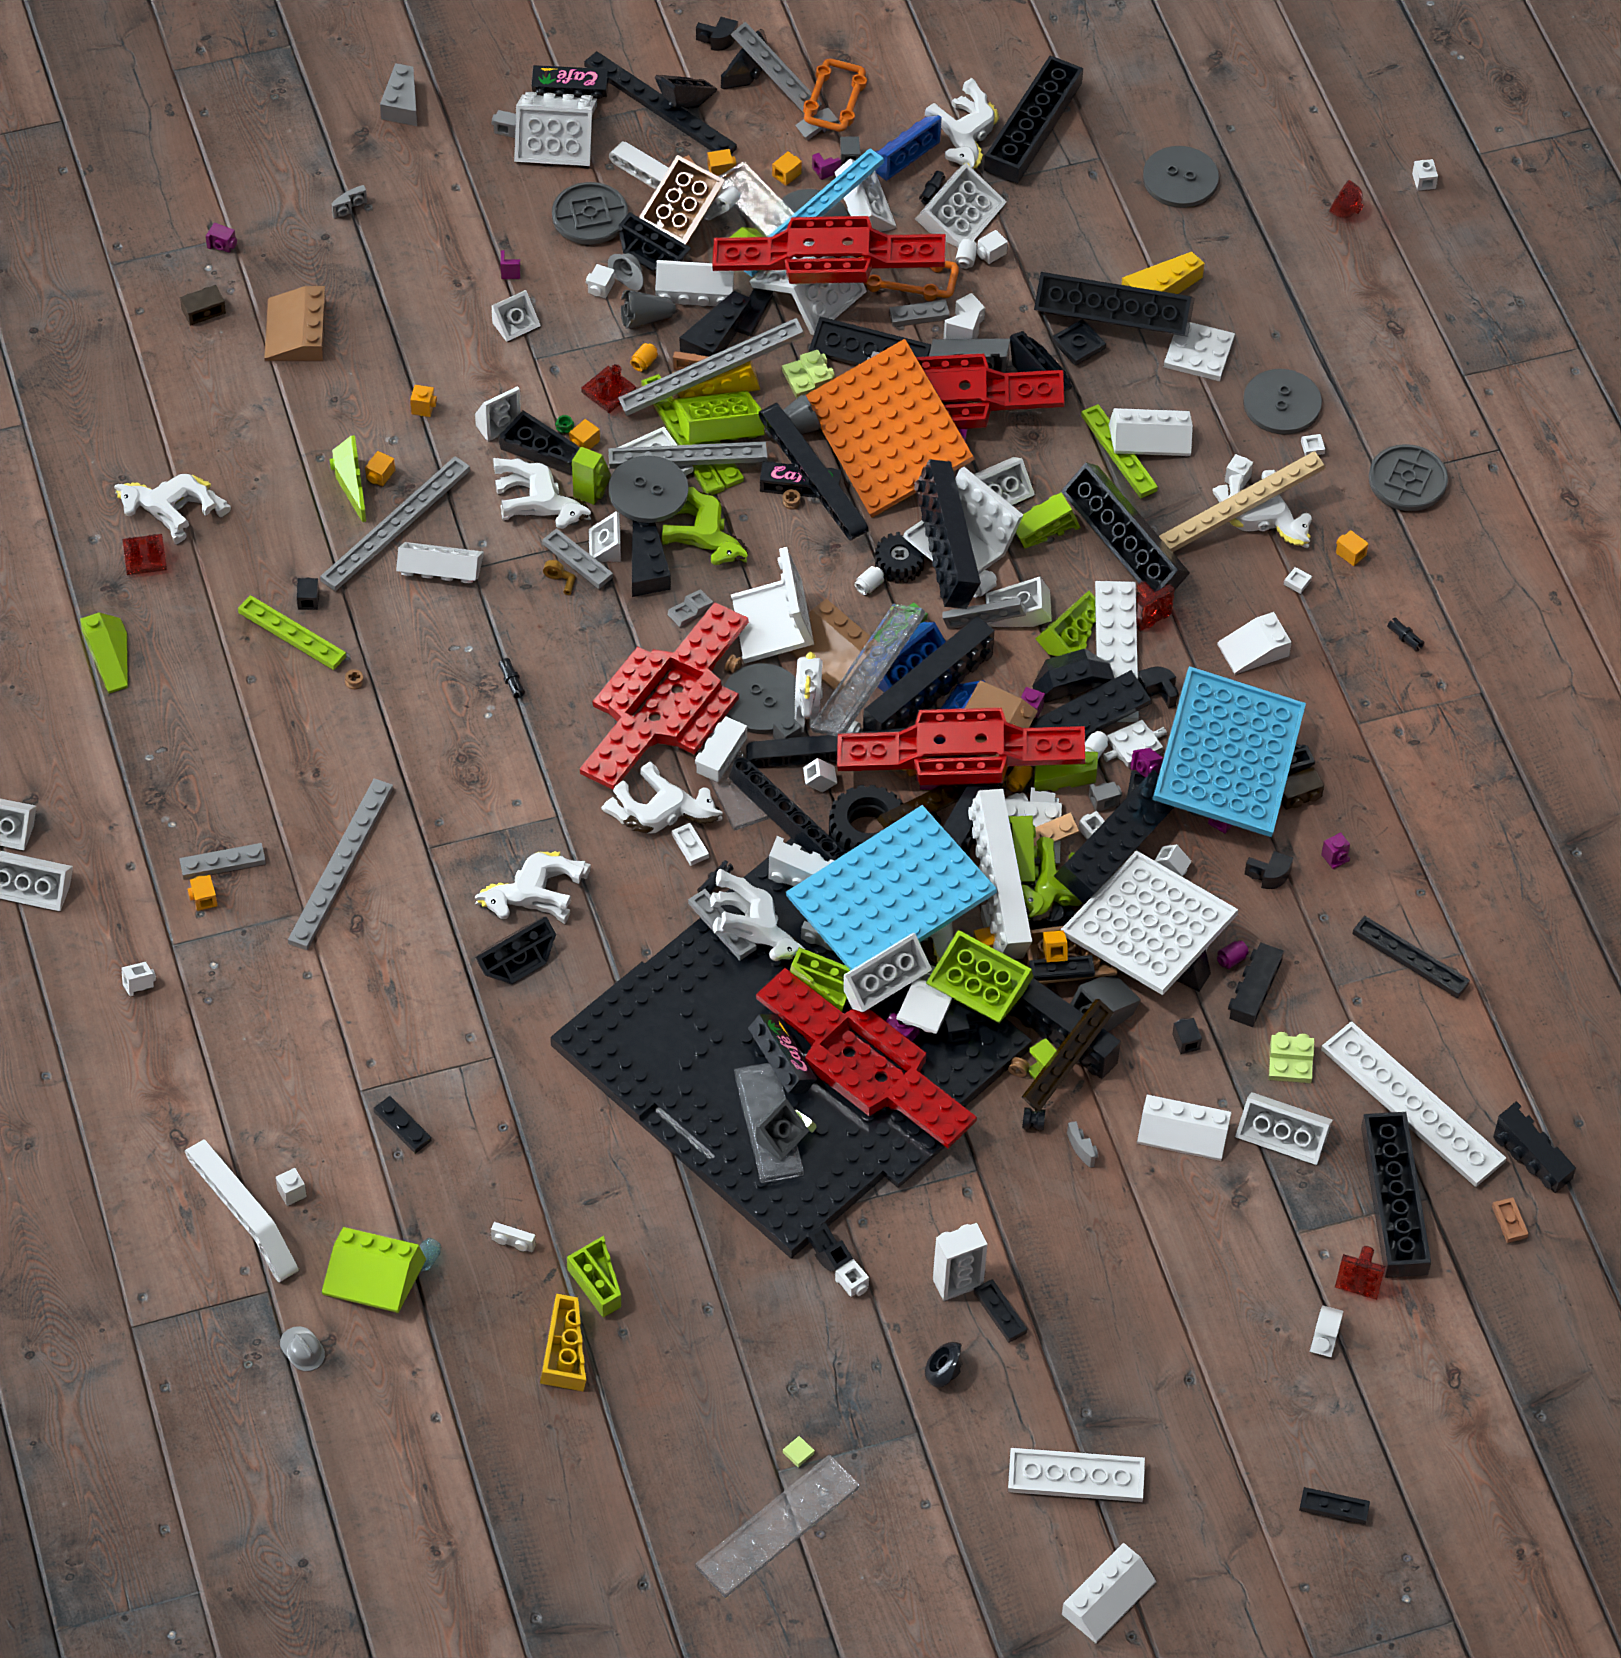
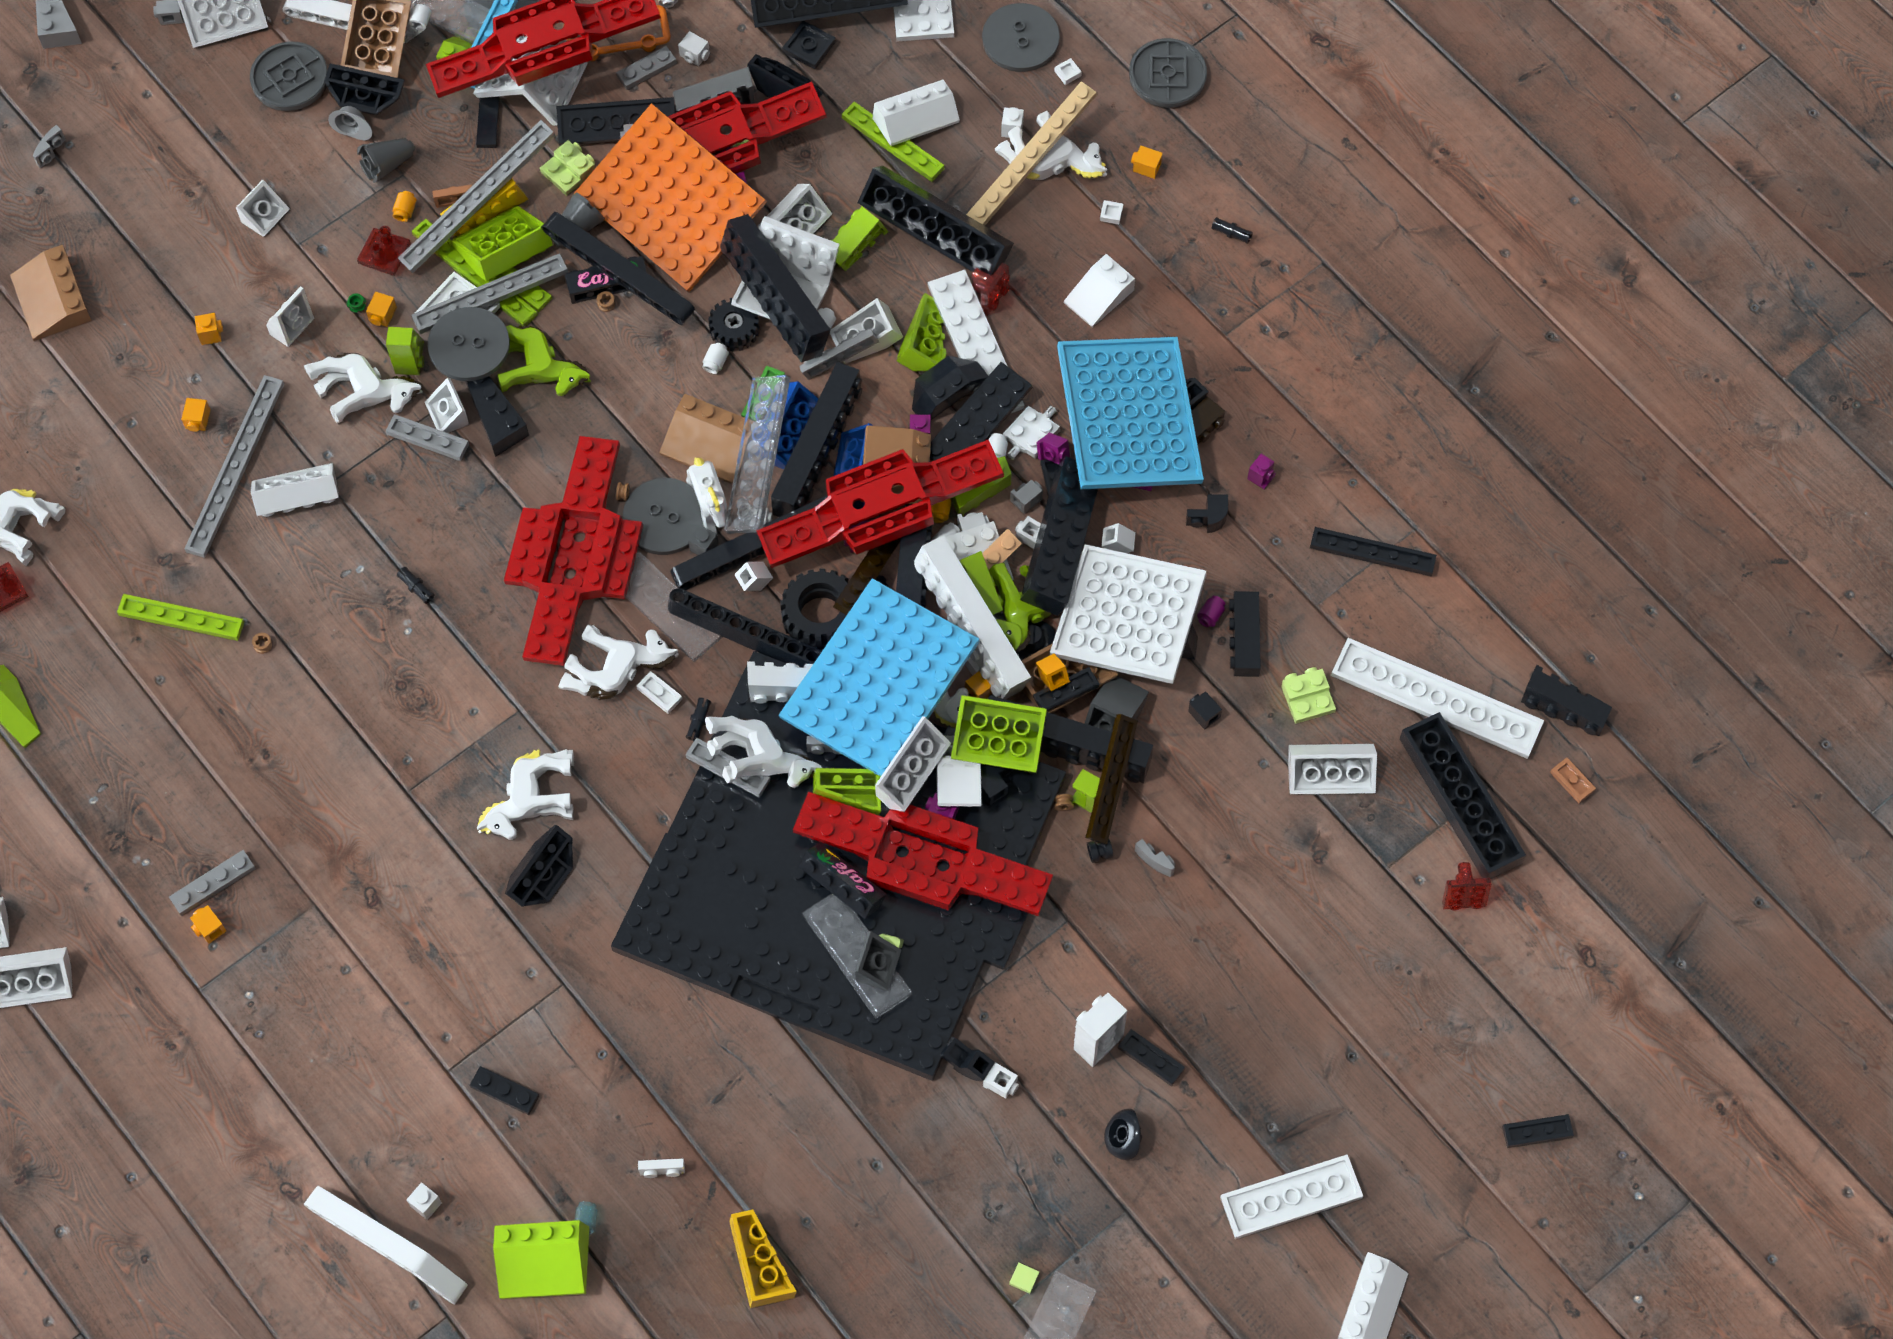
camera: 20 degrees left, 10 degrees up
(137, 977) = (180, 1039): white brick -> none
(307, 593) = (179, 571): black brick -> none
(340, 864) = (329, 842): light grey plate -> none
(348, 474) = (164, 428): wedge -> none
(509, 267) = (235, 159): magenta panel -> none
(538, 443) = (342, 332): black wedge -> none
(554, 570) = (409, 457): pearl gold plate -> none
(595, 1275) = (759, 1177): lime wedge -> none
(600, 281) = (329, 142): white brick -> none
(691, 608) = (557, 448): light grey slope -> none
(692, 283) = (421, 115): white slope -> none
(717, 327) = (462, 153): black wedge -> none
(721, 749) = (649, 585): white brick -> none
(775, 615) = (644, 428): white bracket -> none
(963, 325) = (696, 69): white slope -> none
(1159, 681) = (1030, 360): black brick -> none
(1184, 1127) = (1241, 804): white slope -> none
(1326, 1331) = (1458, 957): white brick -> none

